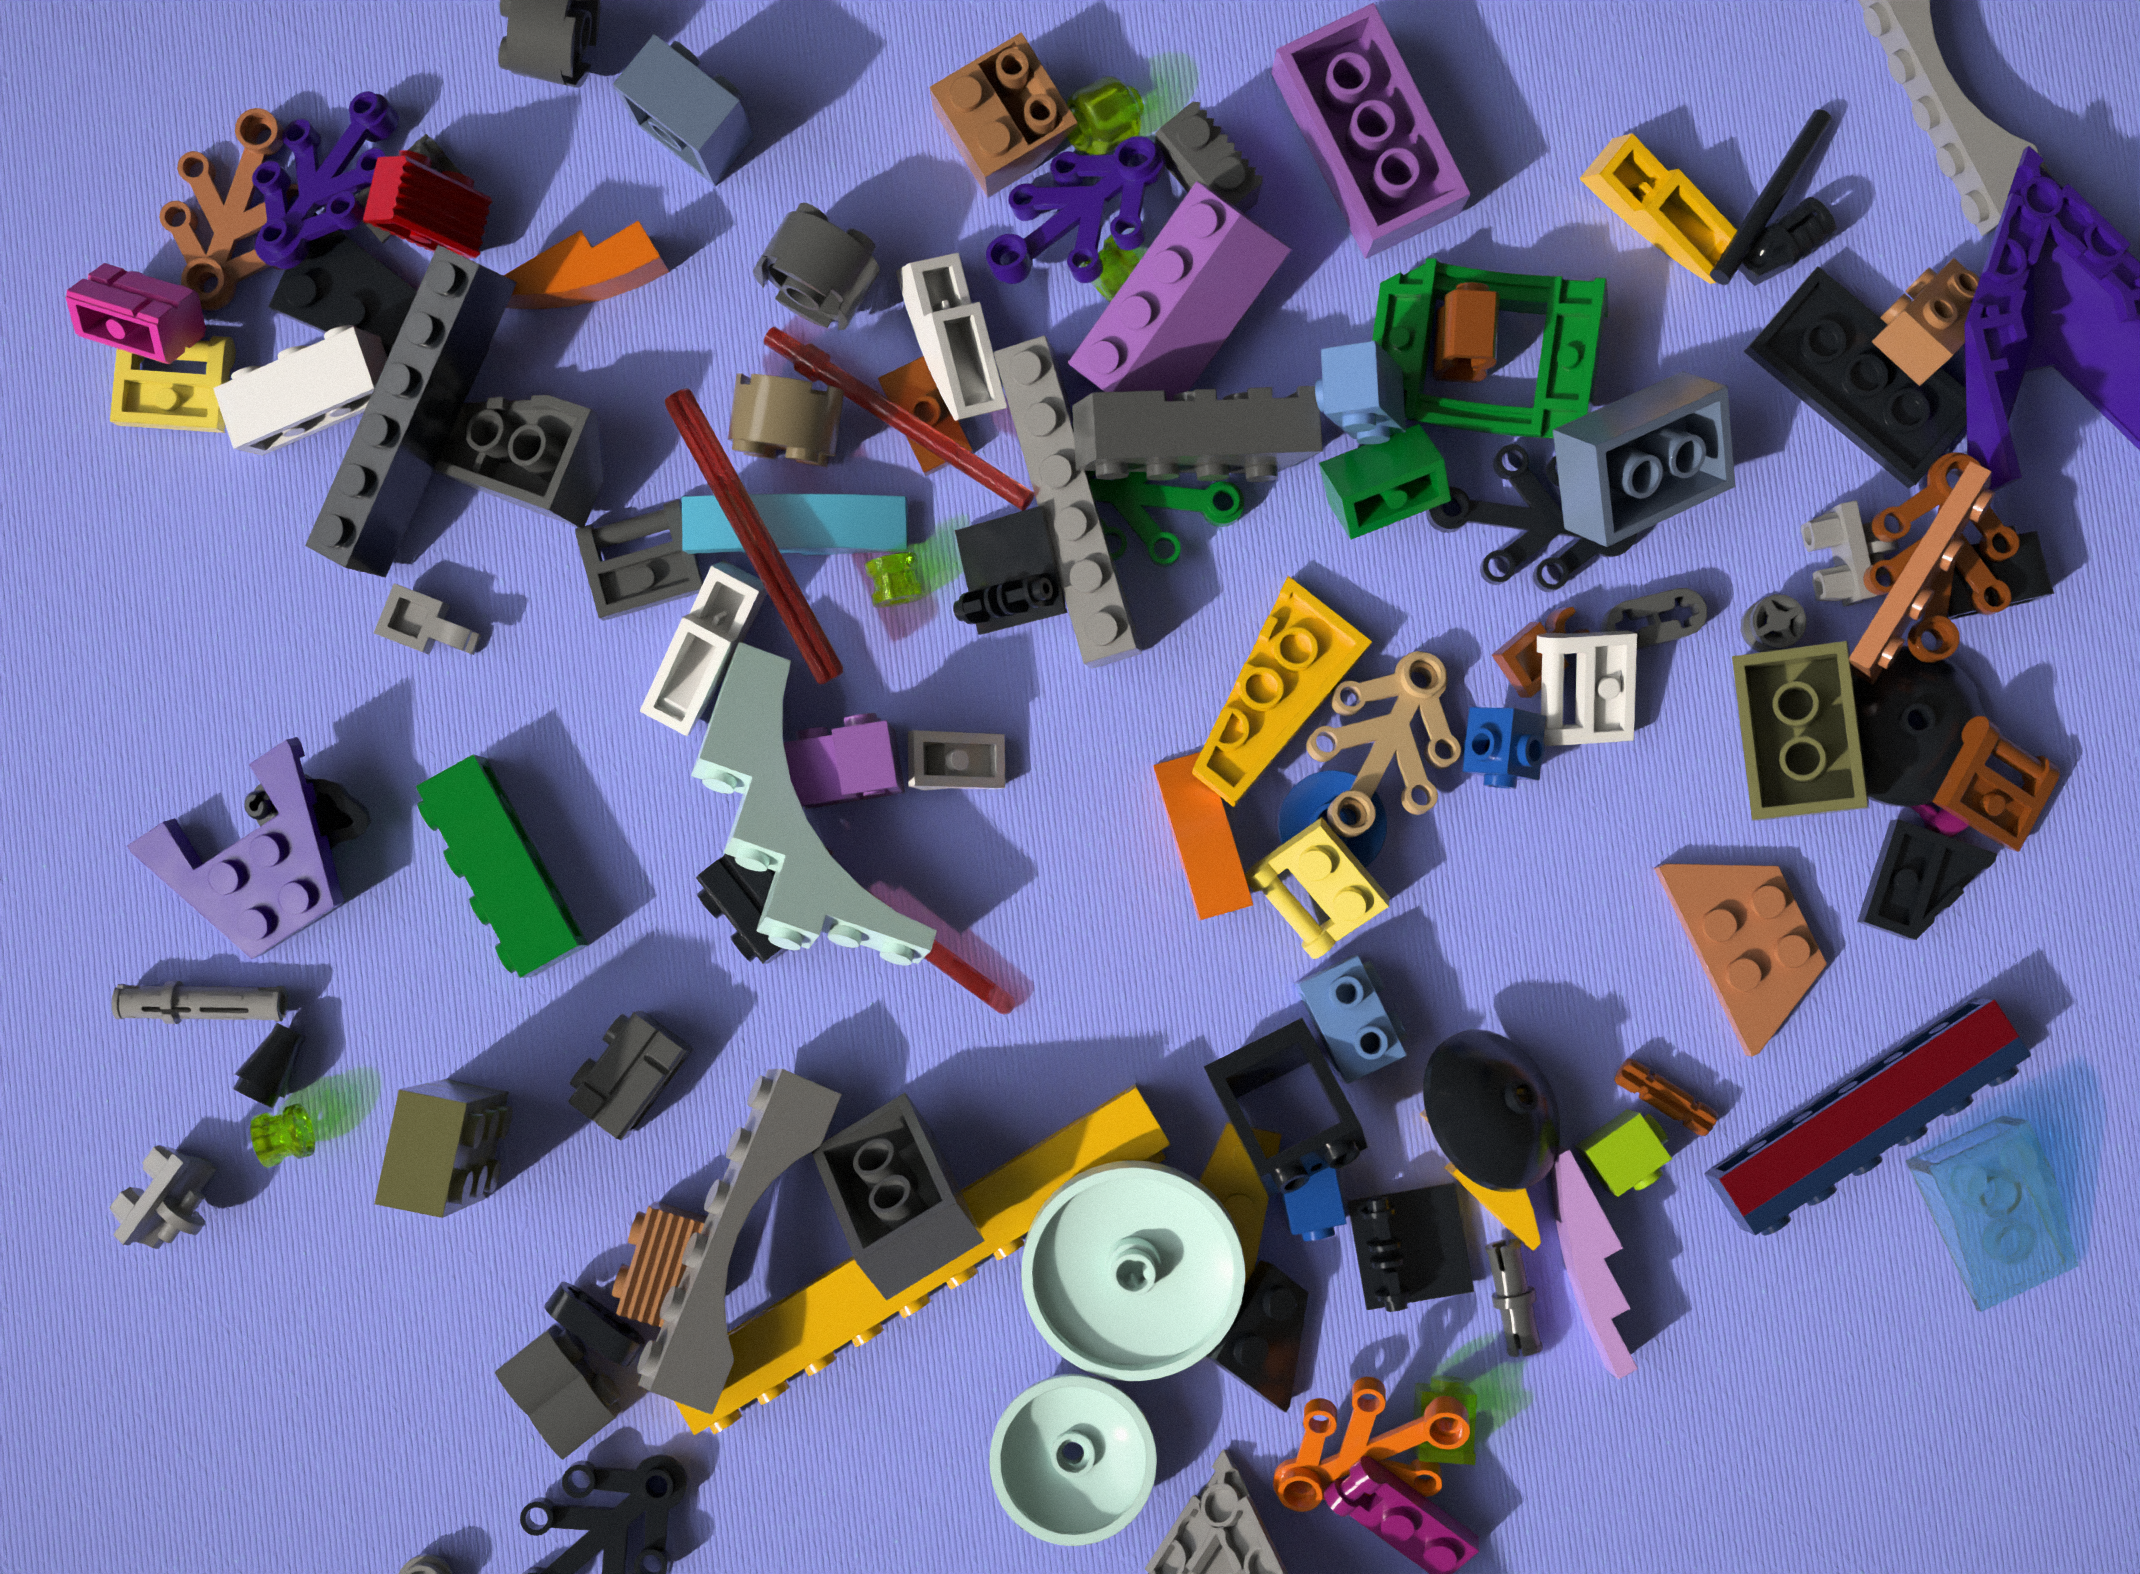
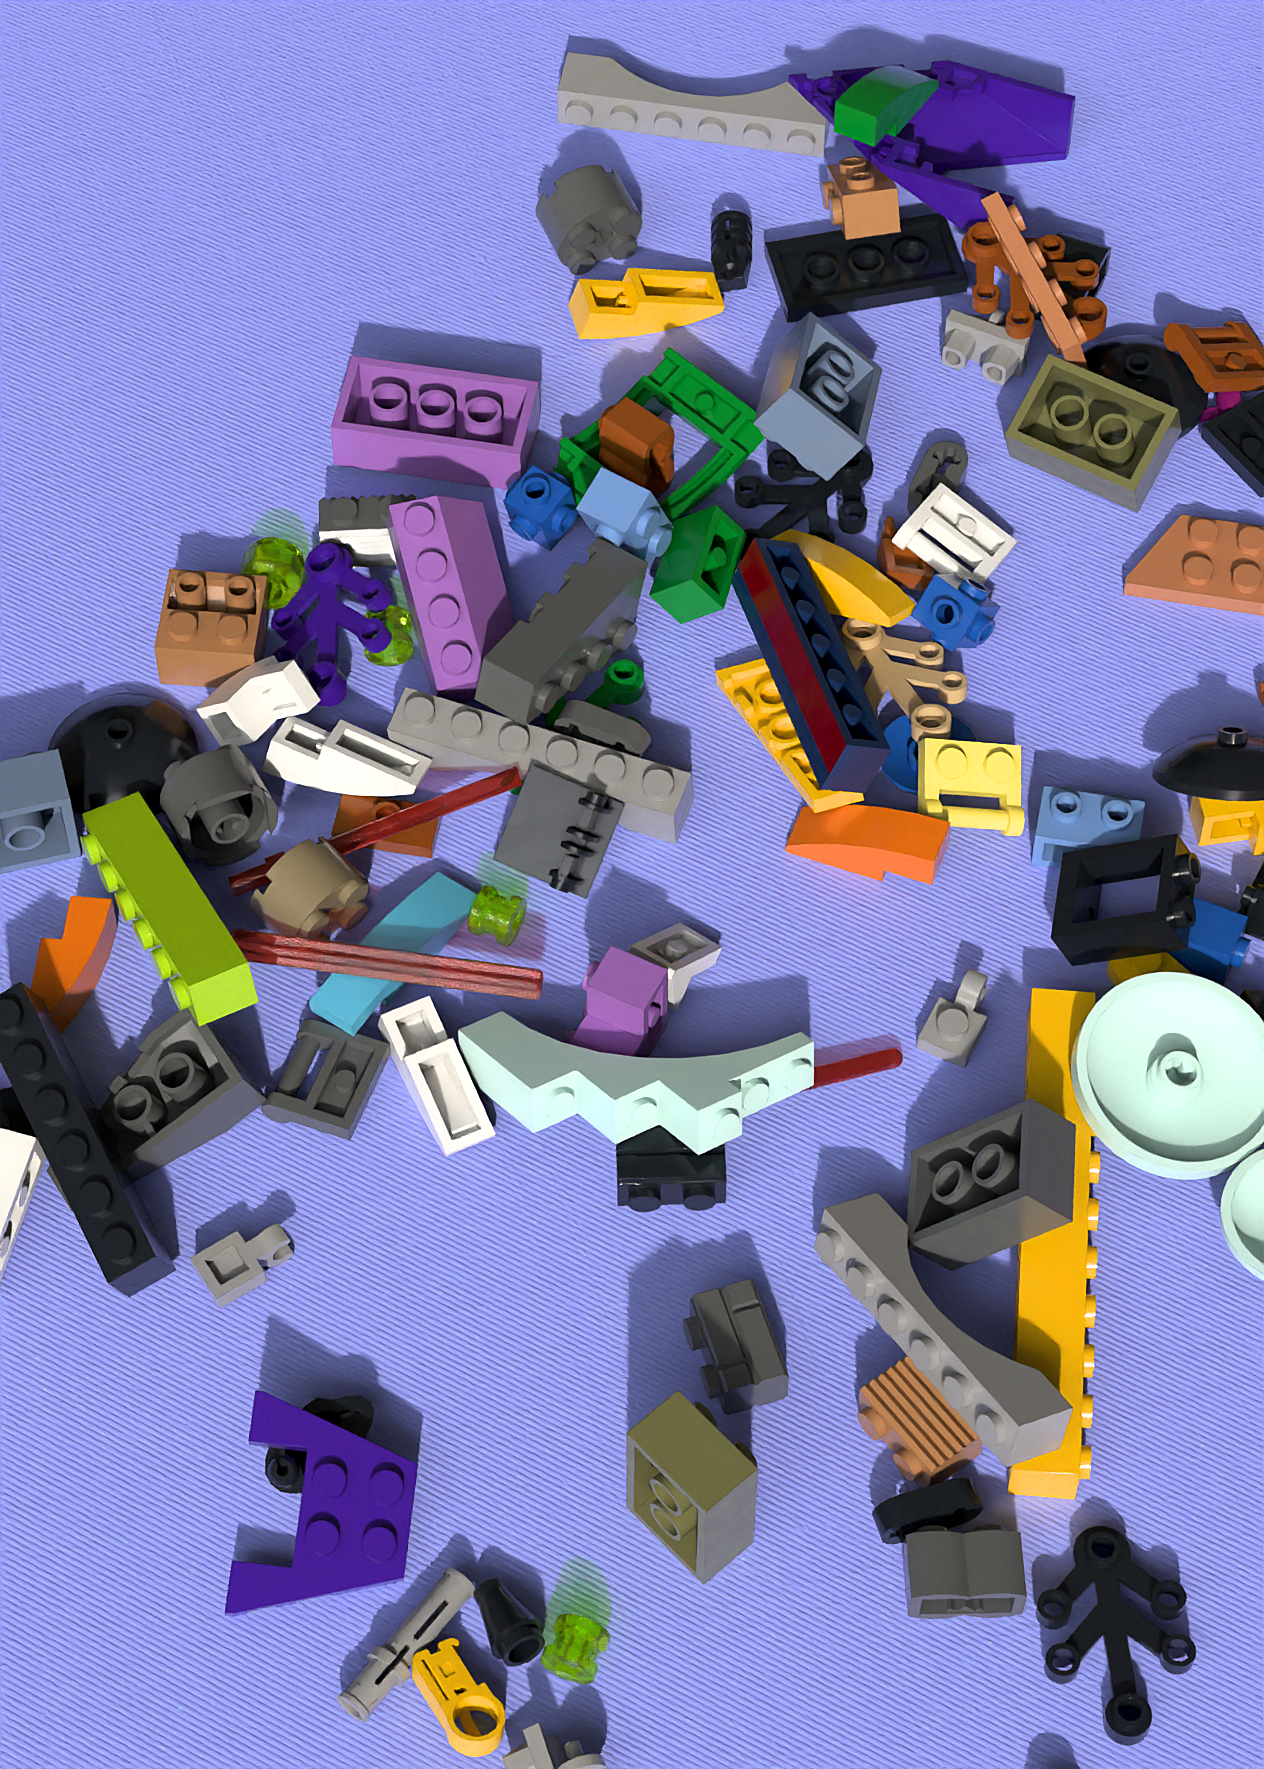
camera: 55 degrees left, 30 degrees down
(189, 1064) = (454, 1694): none -> yellow piece
(500, 866) = (488, 1331): green brick -> none
(670, 315) = (168, 910): none -> lime brick
(840, 171) = (109, 768): none -> black dish
(949, 210) = (255, 699): none -> white brick
(1070, 1036) = (956, 1027): none -> light grey plate
(1130, 537) = (602, 728): none -> dark grey beam
(1322, 670) = (810, 666): none -> dark blue brick
(1353, 311) = (541, 507): none -> blue brick
(1458, 615) = (849, 583): none -> yellow slope
(1716, 87) = (589, 218): none -> dark grey brick
(1771, 197) = (693, 241): black bar -> none
(1784, 618) = (997, 402): dark grey wheel -> none
(2048, 269) = (881, 103): none -> green slope

